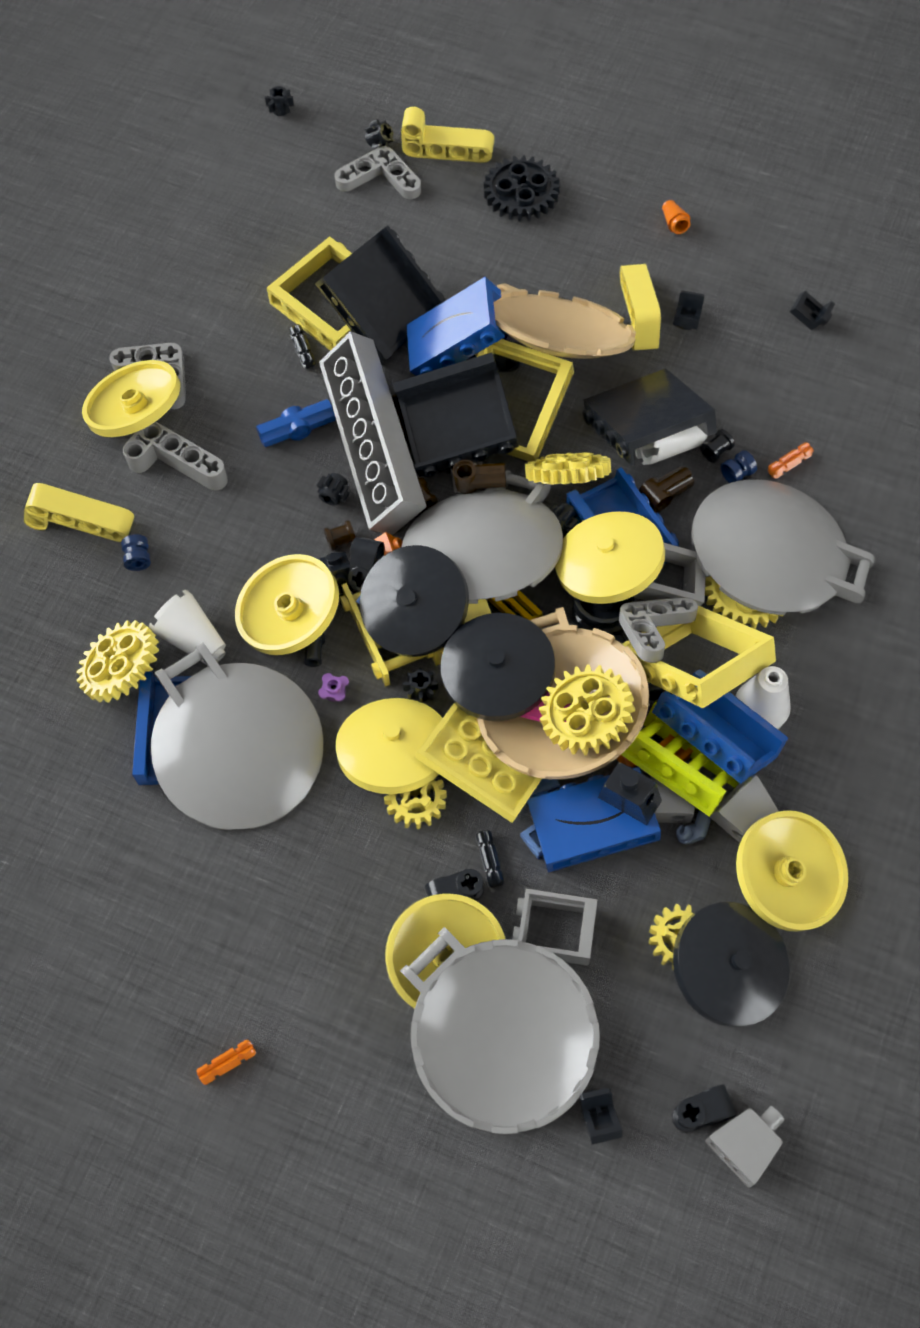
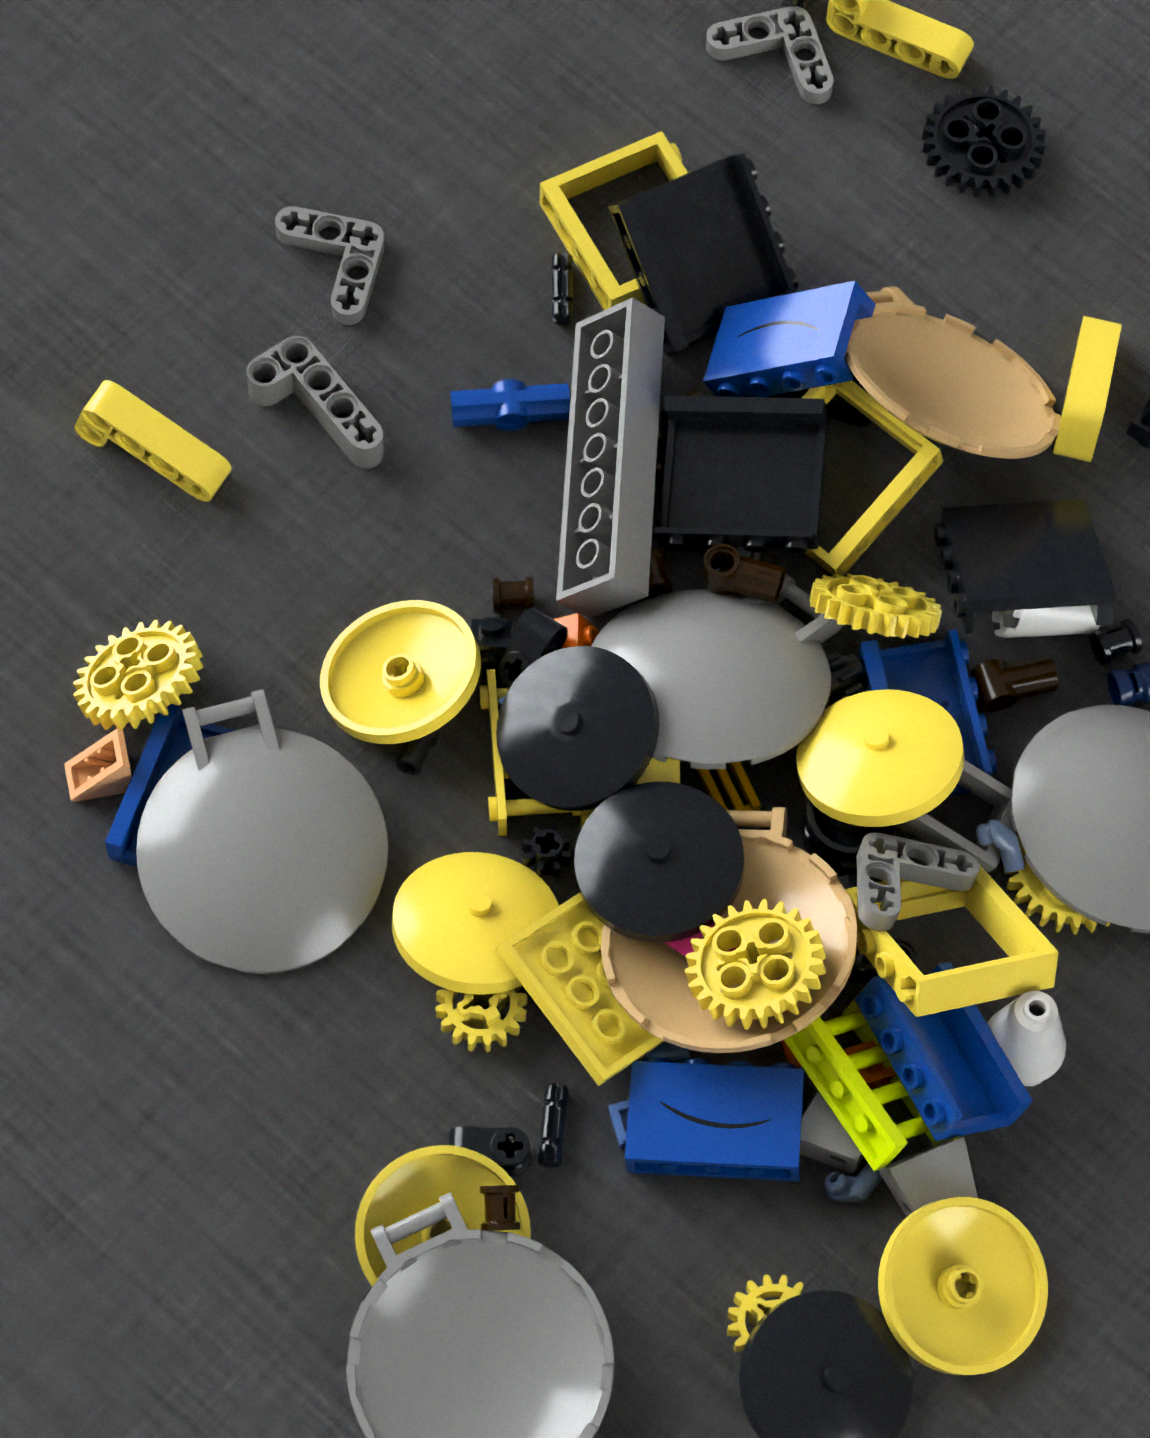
camera: 15 degrees right, 0 degrees up
(113, 729) = (100, 769): none -> light nougat slope
(131, 398) = (285, 292): light yellow dish -> none
(135, 551) = (215, 524): dark blue wheel -> none
(187, 626) = (250, 658): white cone -> none
(226, 1062) = (100, 1271): orange axle -> none
(333, 489) = (527, 523): black gear -> none
(336, 694) = (424, 824): medium lavender plate -> none
(480, 925) = (500, 1207): none -> dark brown bush
(561, 902) = (656, 1233): light grey window -> none
(629, 793) = (770, 1097): black torso -> none
(706, 583) = (1005, 840): none -> sand blue arm

